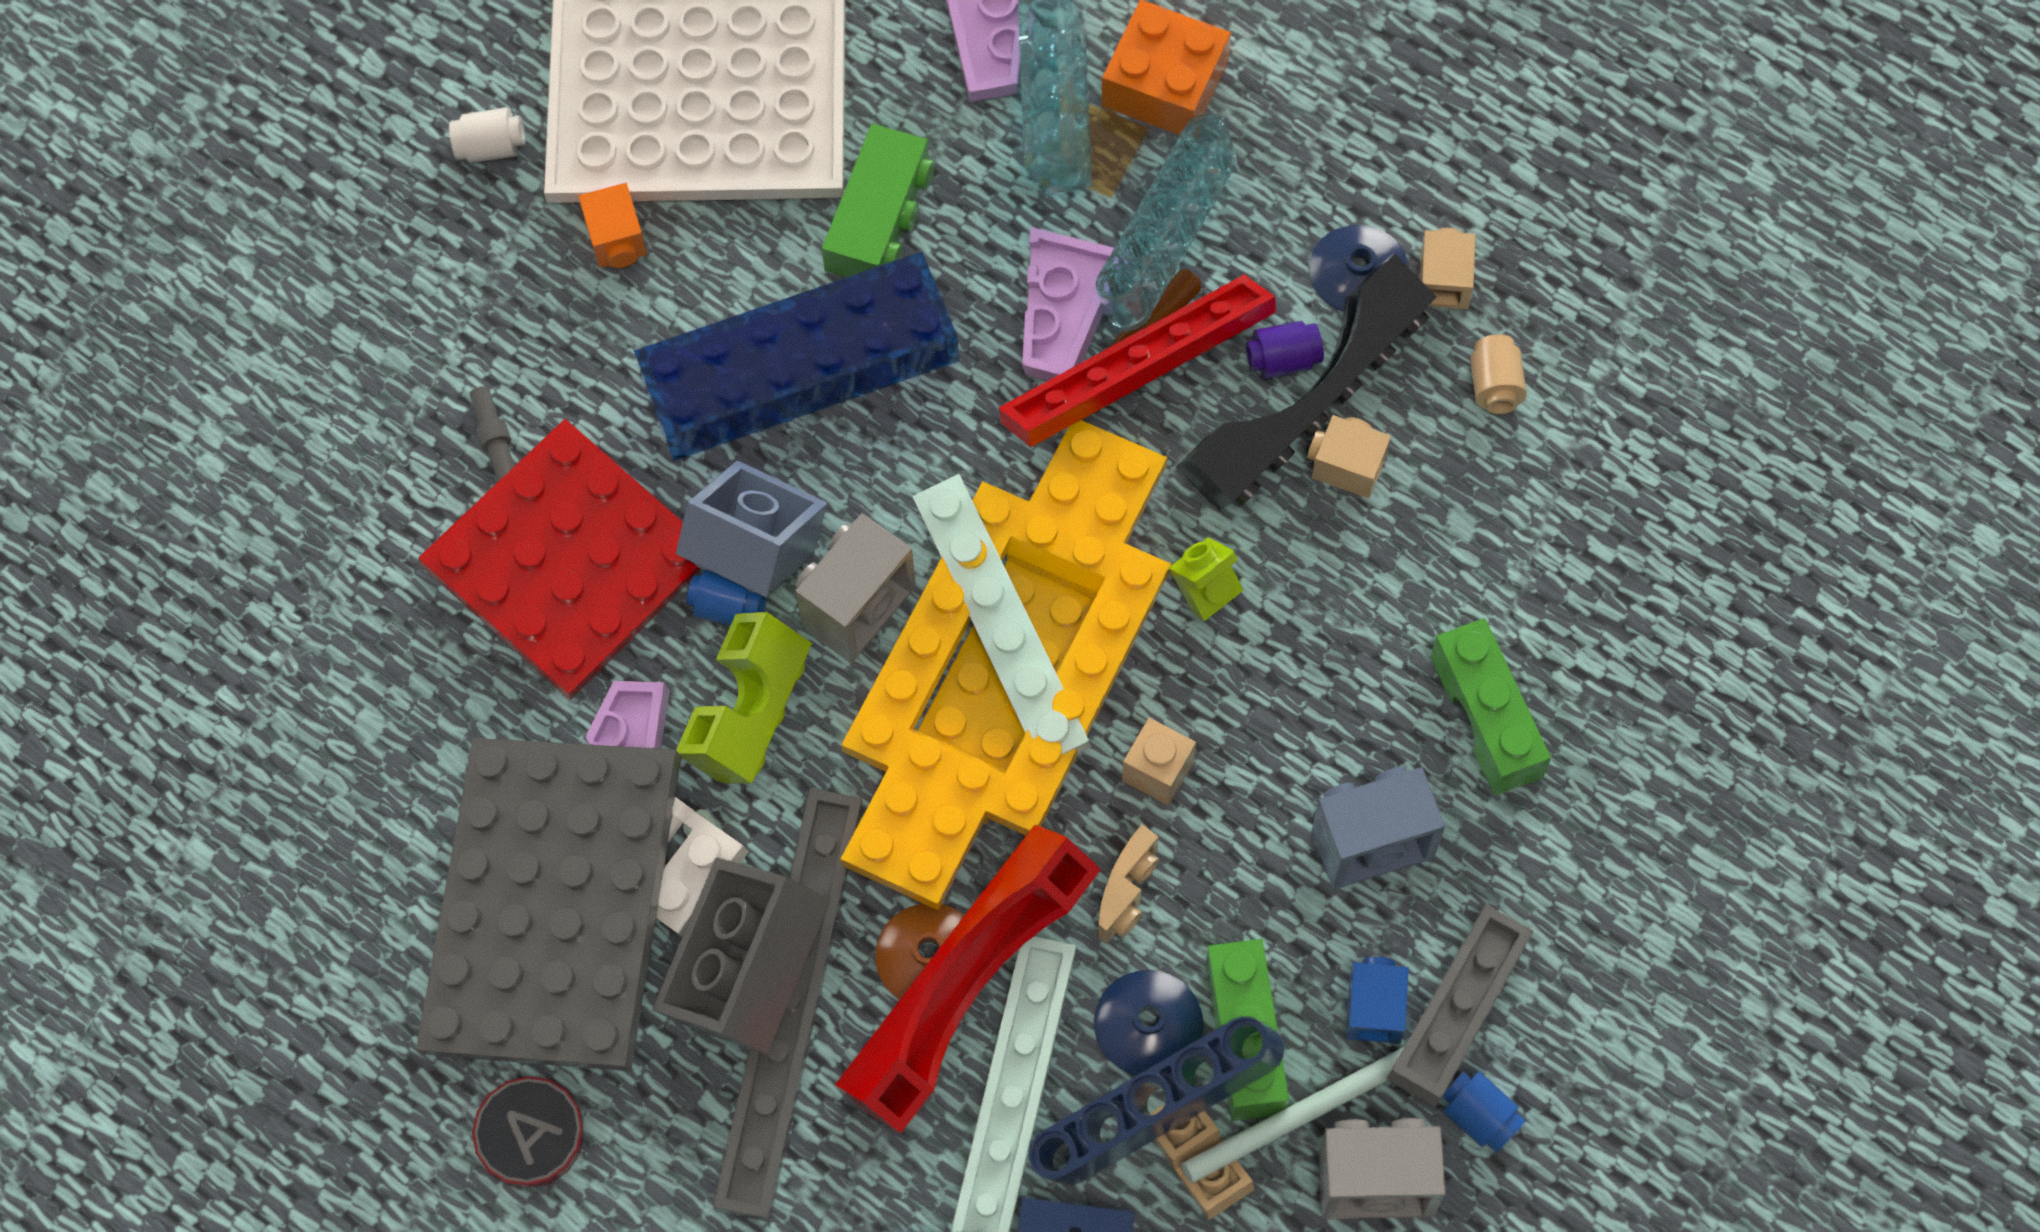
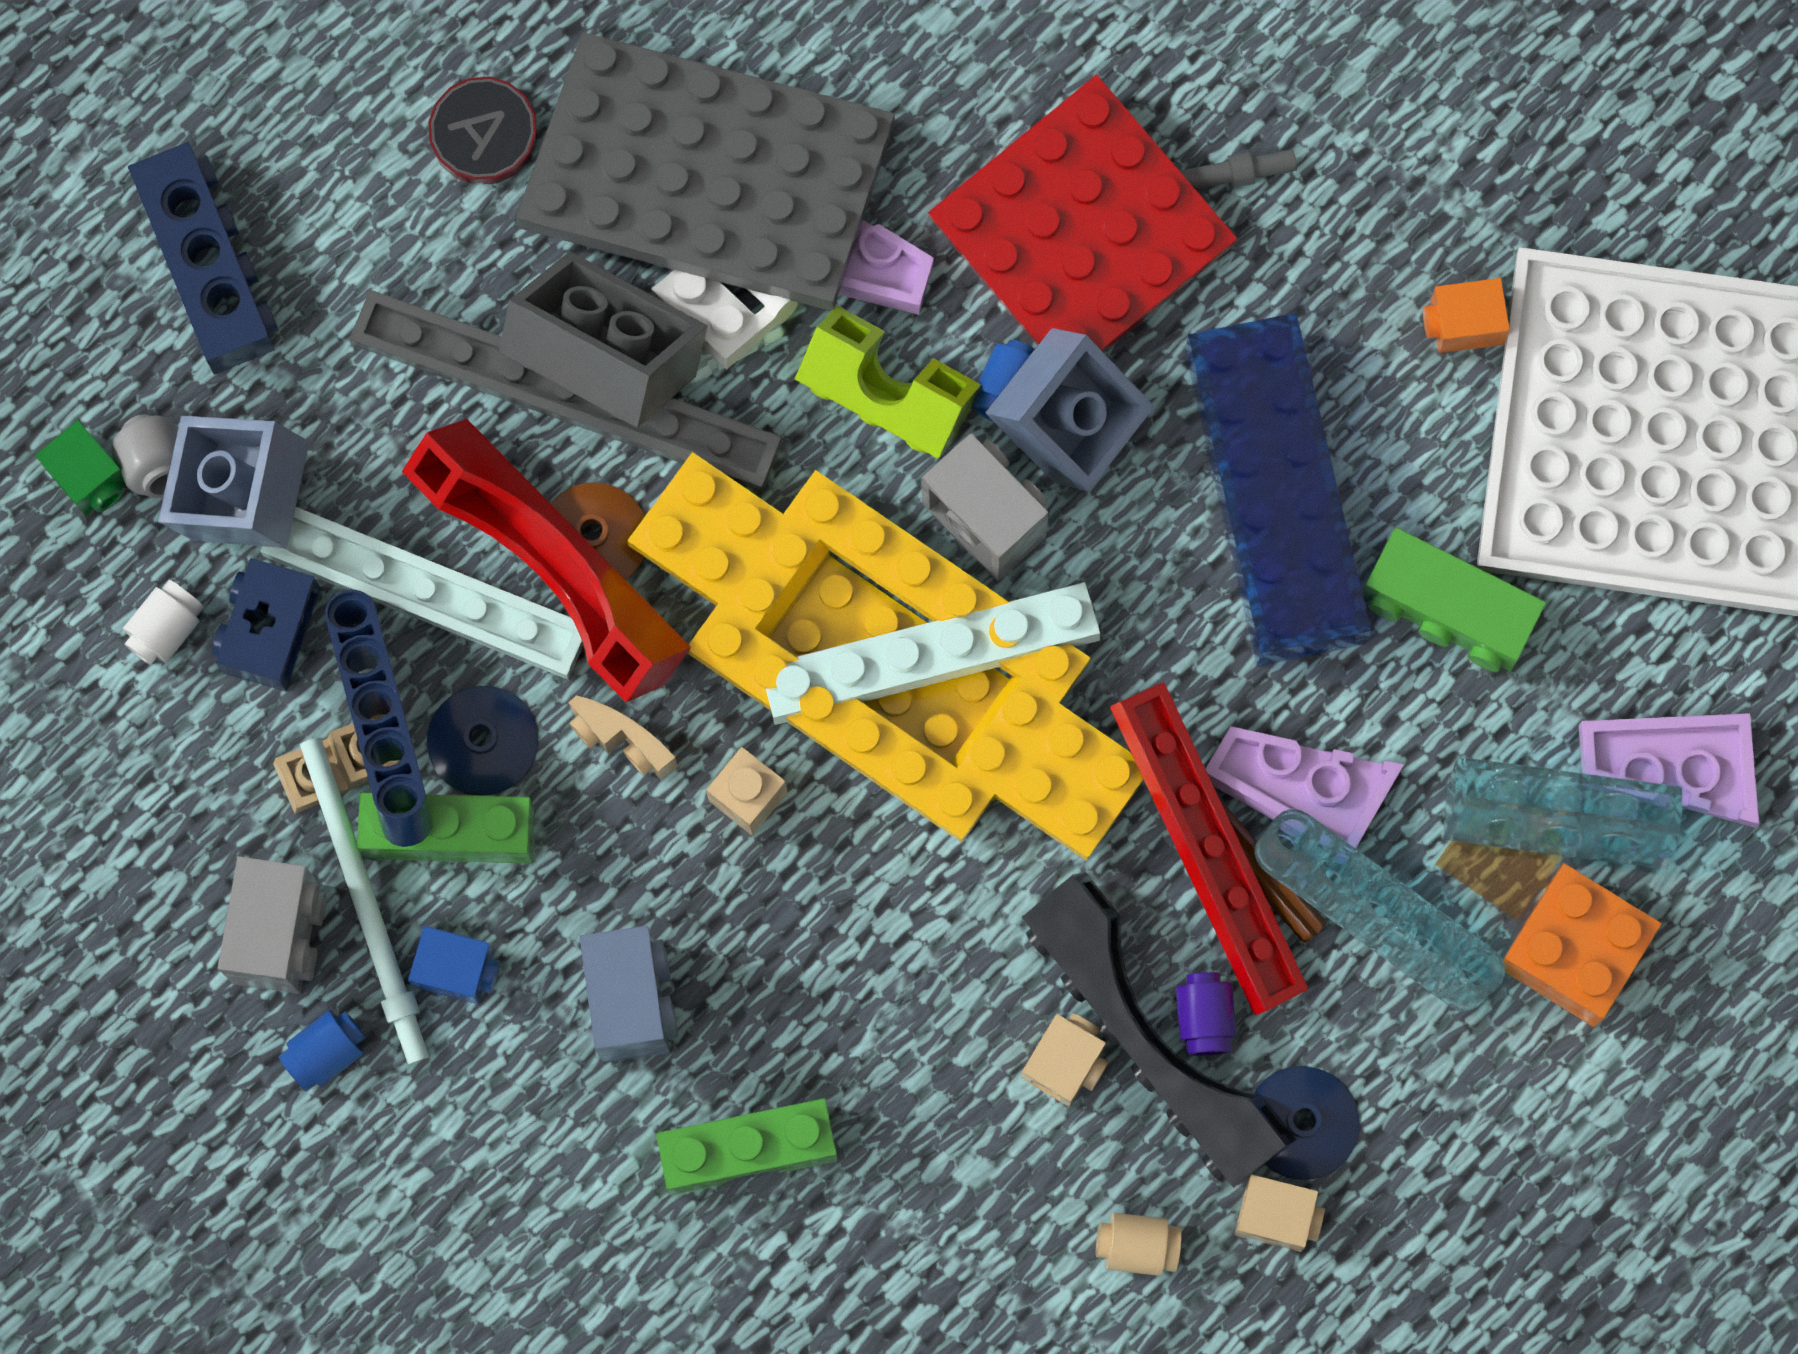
camera: 100 degrees right, 10 degrees up
(486, 135) = (1604, 195): white brick -> none
(1207, 577) = (944, 877): lime bracket -> none
(1460, 1006) = (428, 1045): dark grey plate -> none

